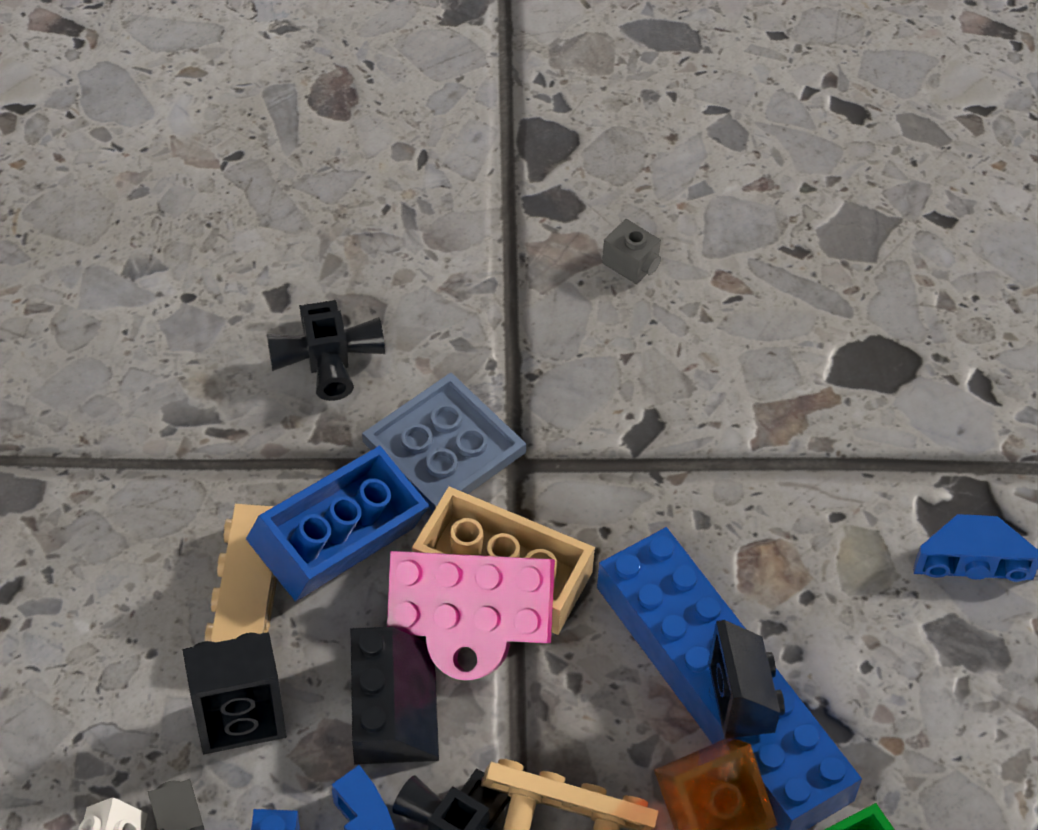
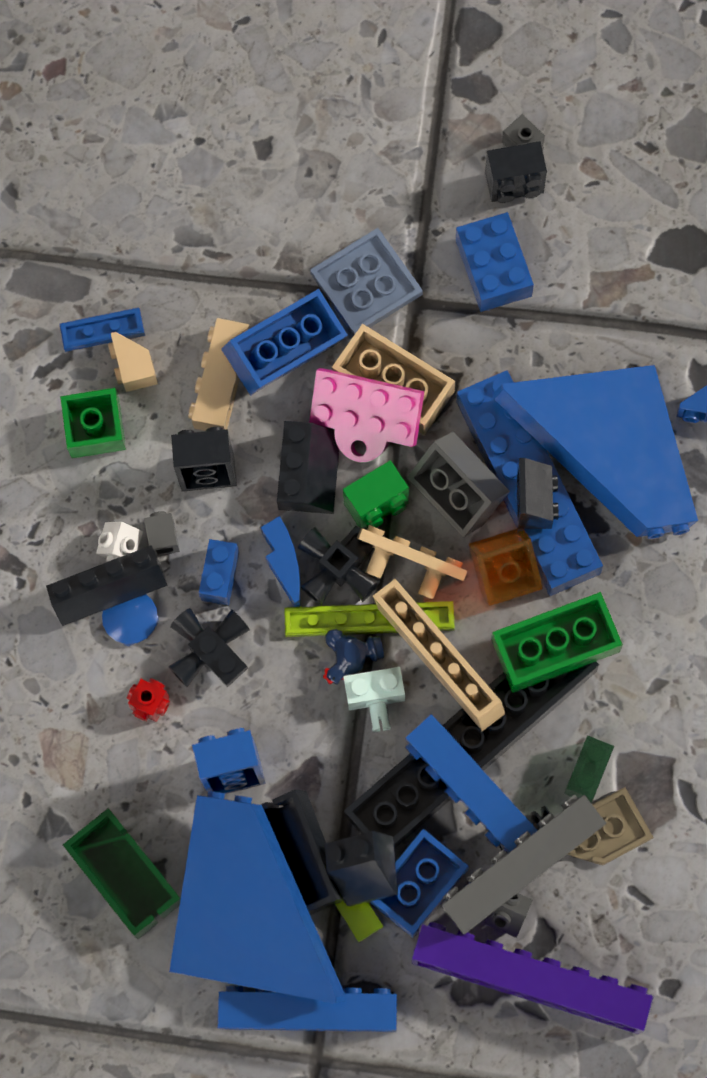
camera: 15 degrees right, 20 degrees up
(59, 666) = (93, 423): none -> green brick
(65, 543) = (98, 329): none -> blue tile
(117, 581) = (134, 363): none -> tan slope
(326, 347) = (292, 197): black brick -> none
(503, 717) = (376, 496): none -> green brick
(620, 399) = (494, 262): none -> blue brick
(623, 688) = (458, 484): none -> dark grey brick
(630, 285) = (515, 172): none -> black brick
(837, 604) = (614, 440): none -> blue slope

